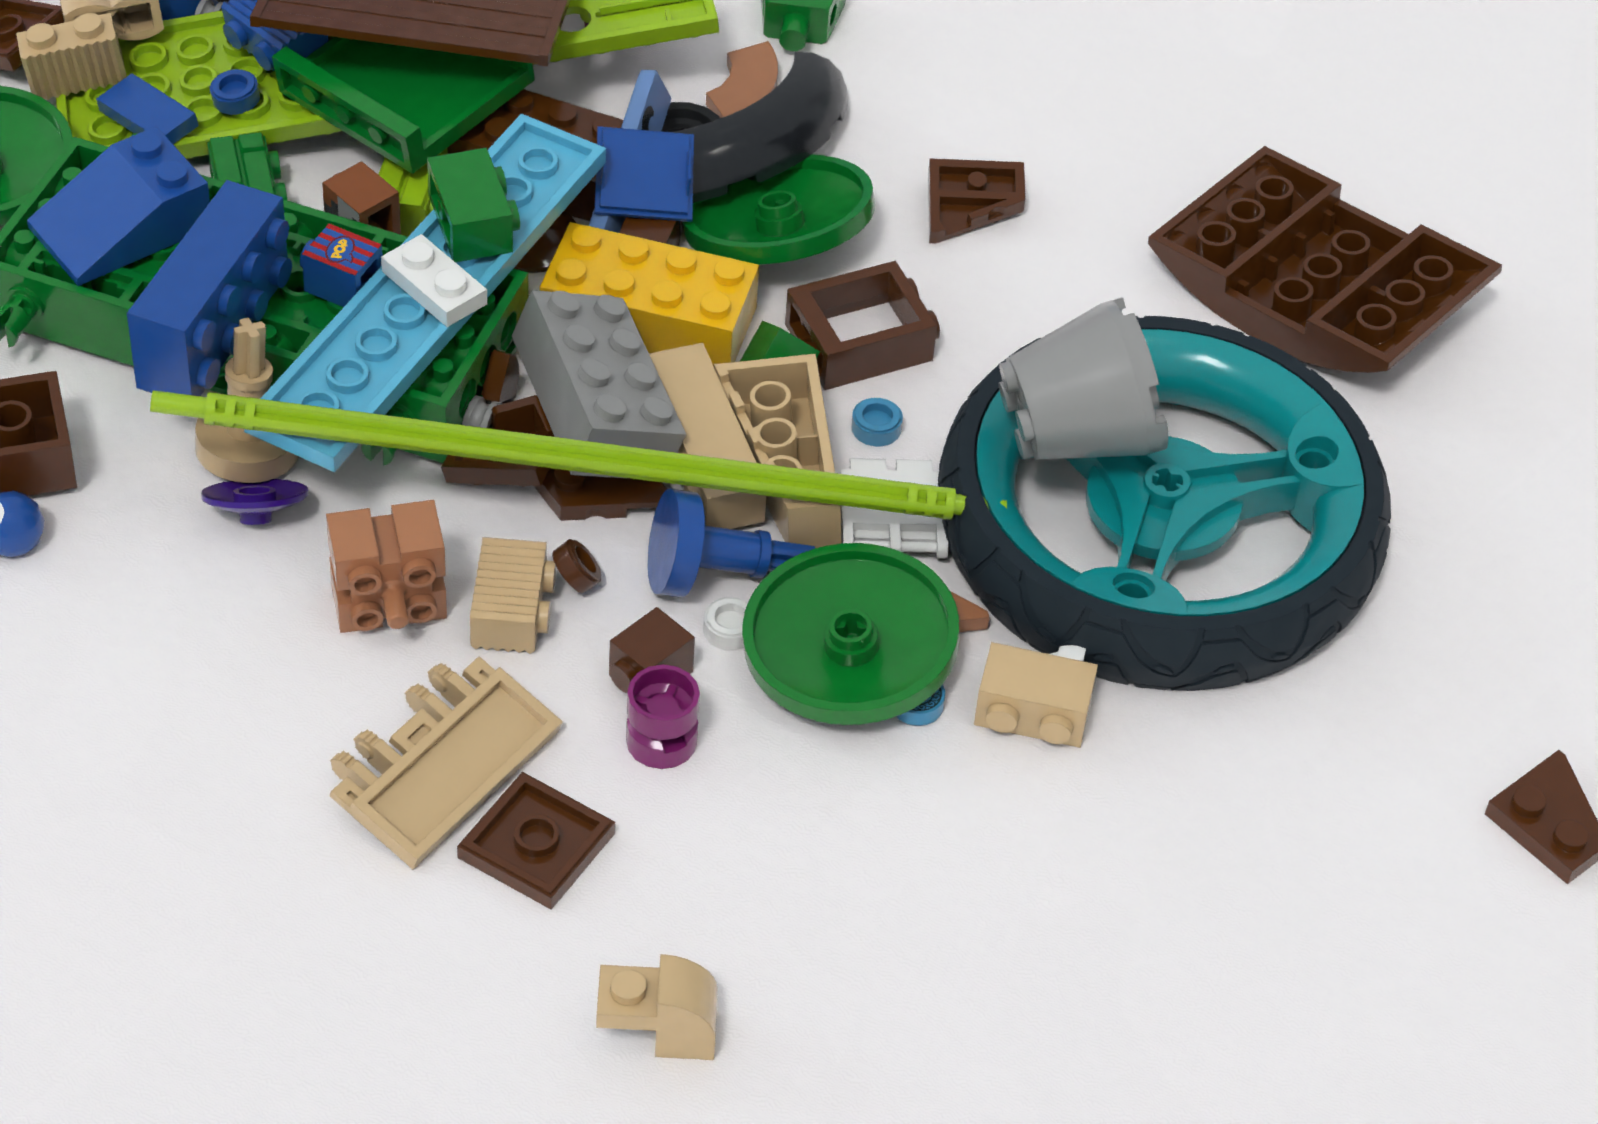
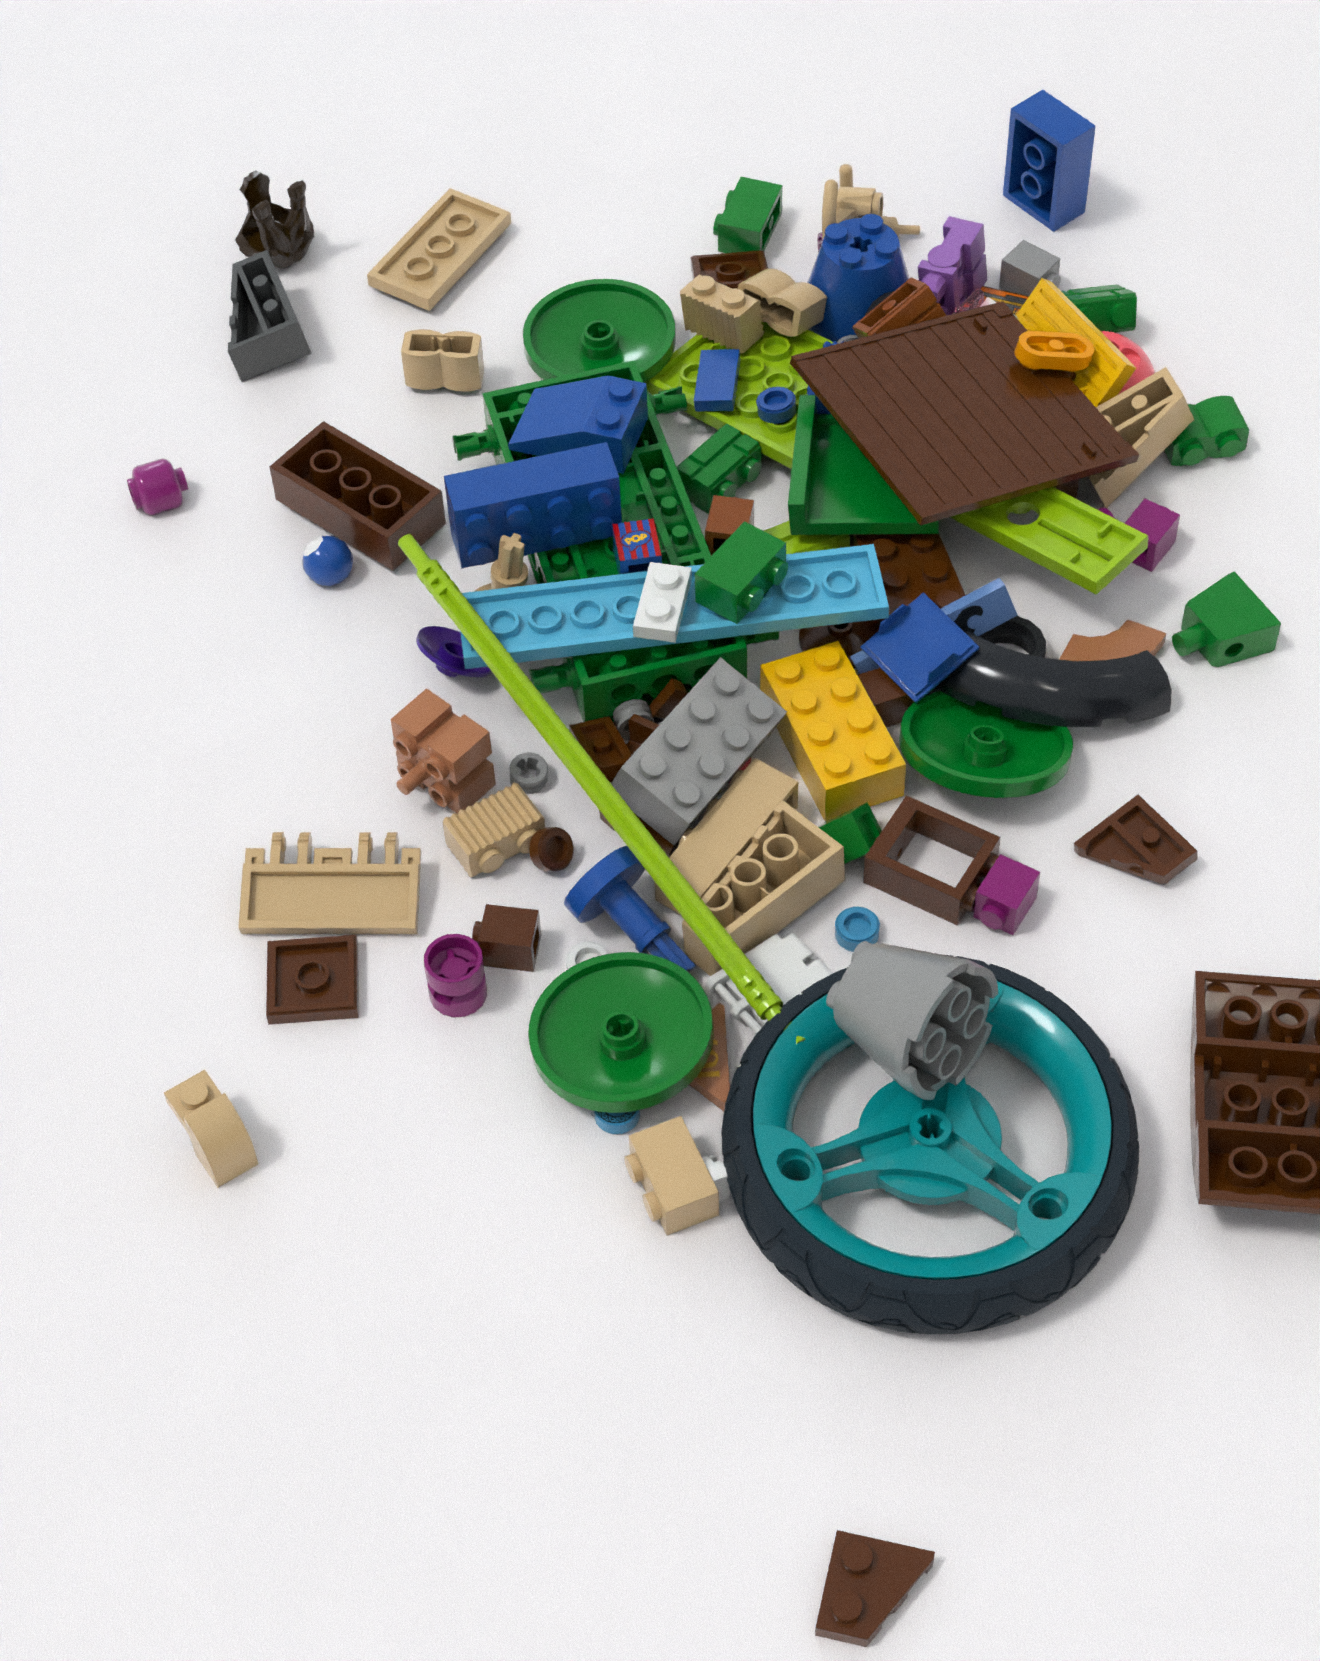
camera: 60 degrees right, 5 degrees up
(465, 525) = (529, 761): none -> light grey bush
(952, 298) = (1006, 894): none -> magenta brick

